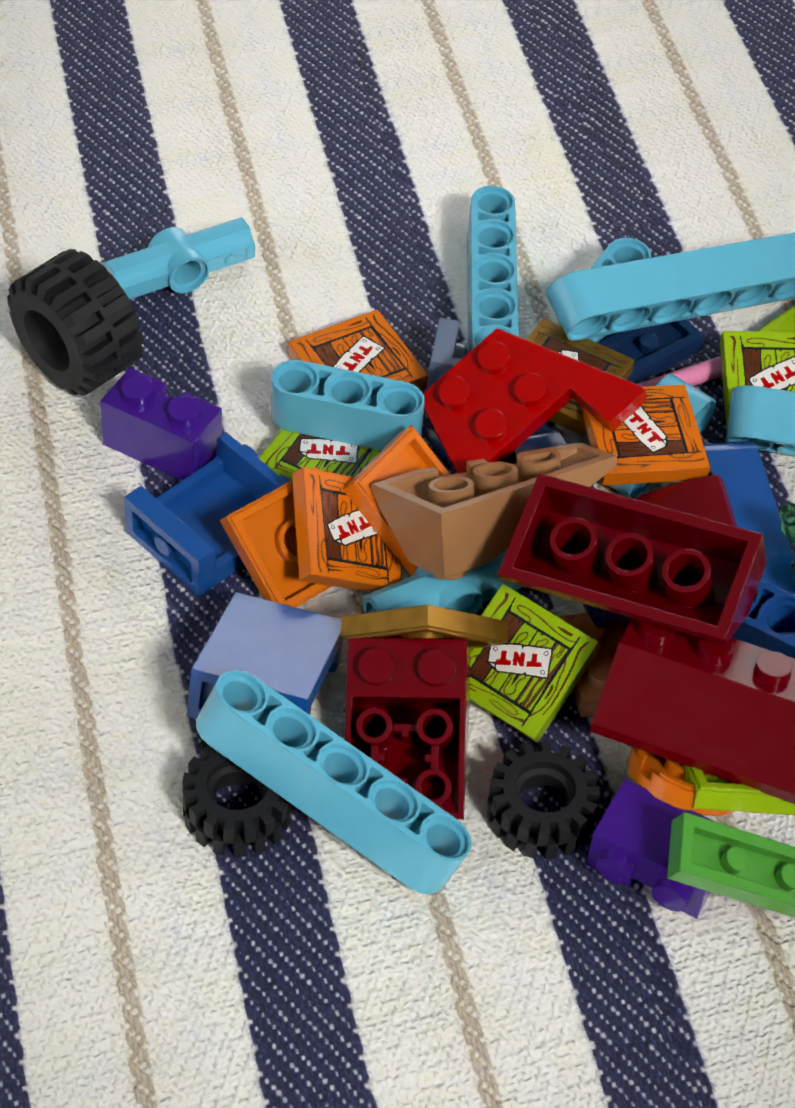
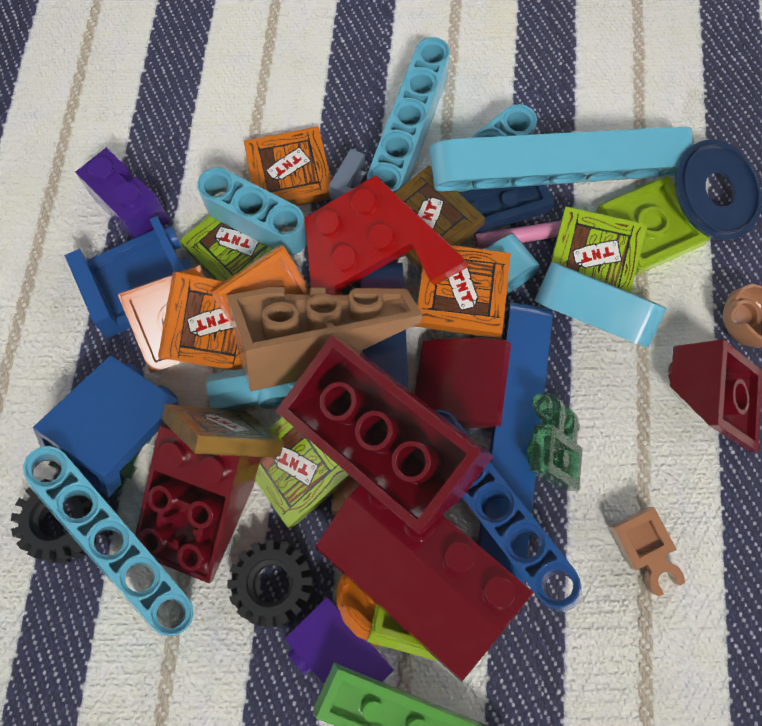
camera: 25 degrees right, 20 degrees up
(75, 322) = (81, 100): black tyre -> none
(182, 258) = (191, 56): medium azure piece -> none

